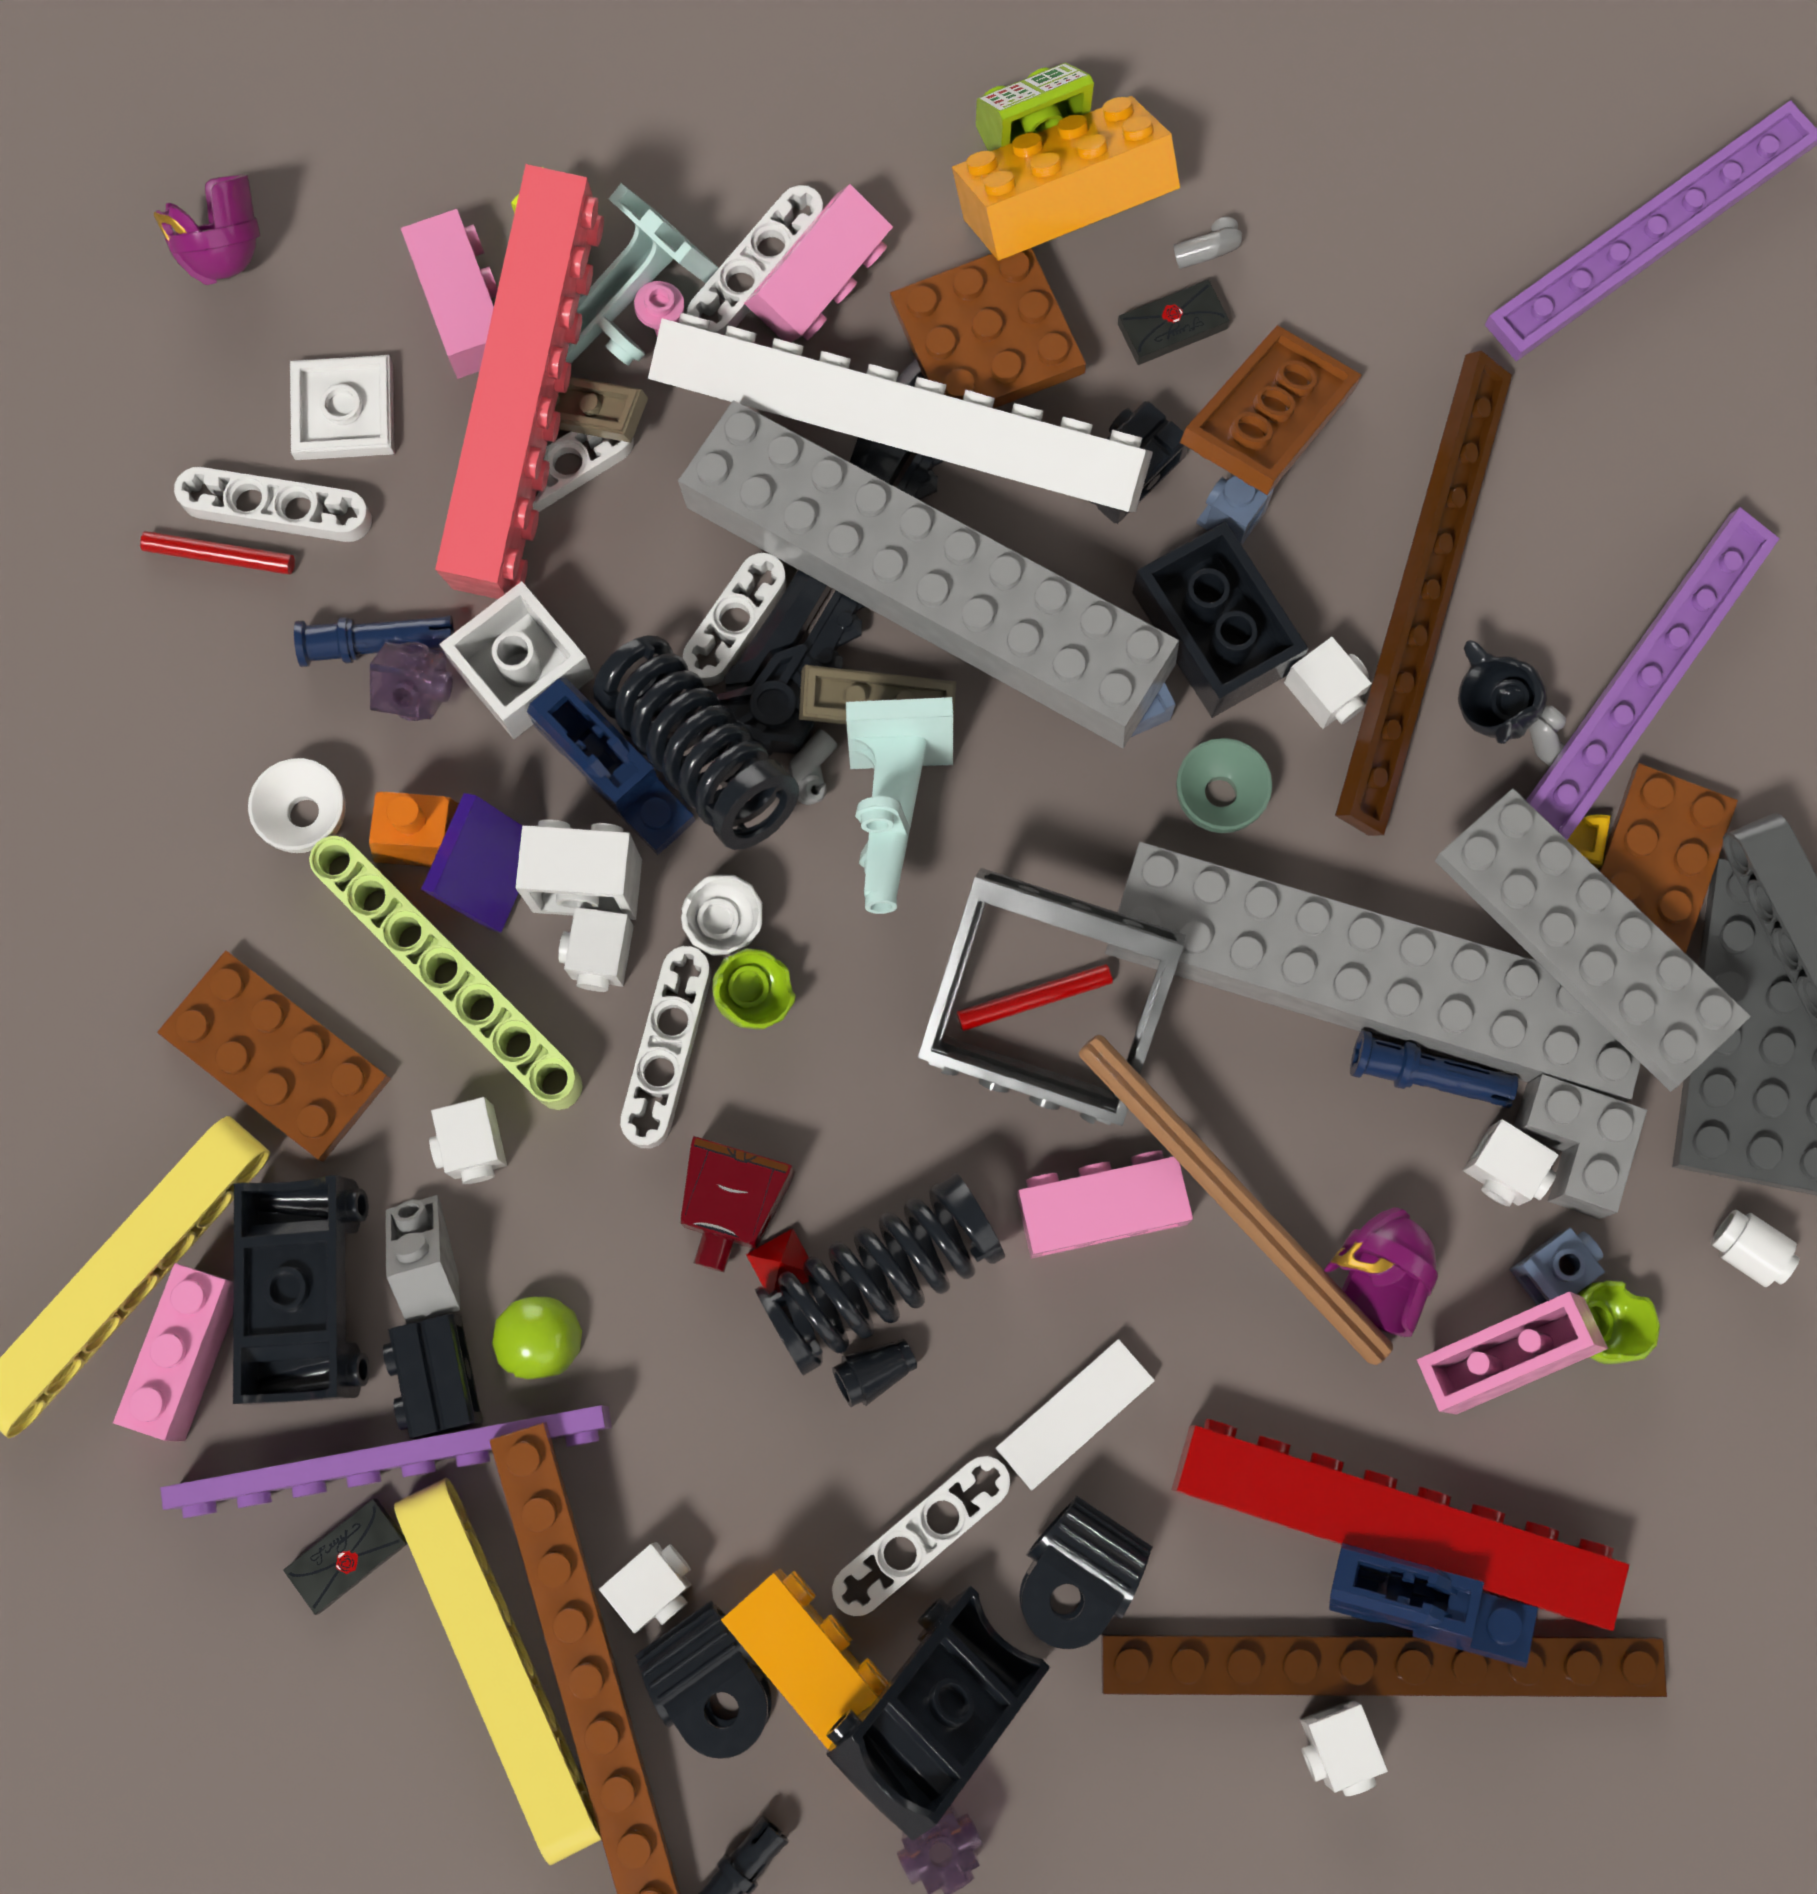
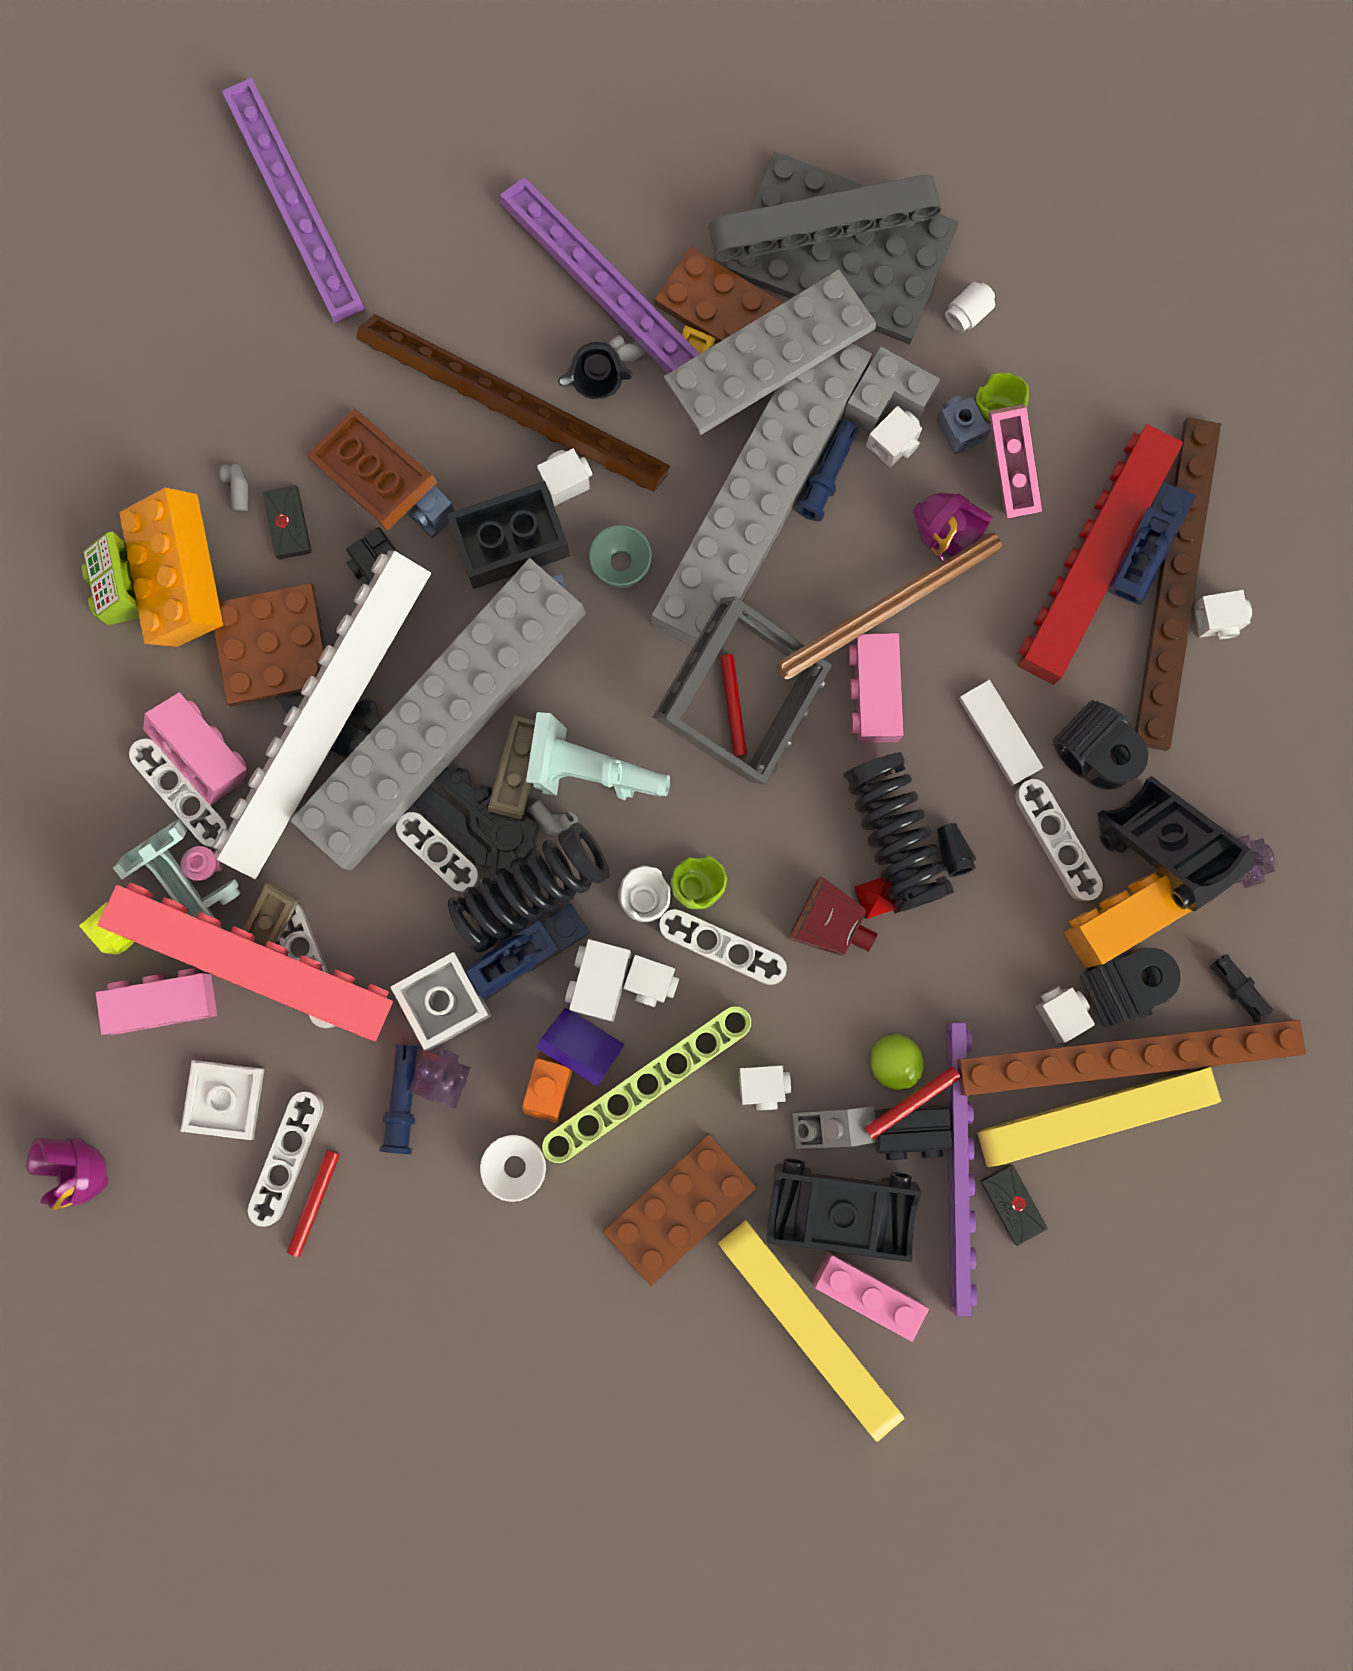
camera: 85 degrees left, 5 degrees up
(468, 1362) = (912, 1102): none -> red bar

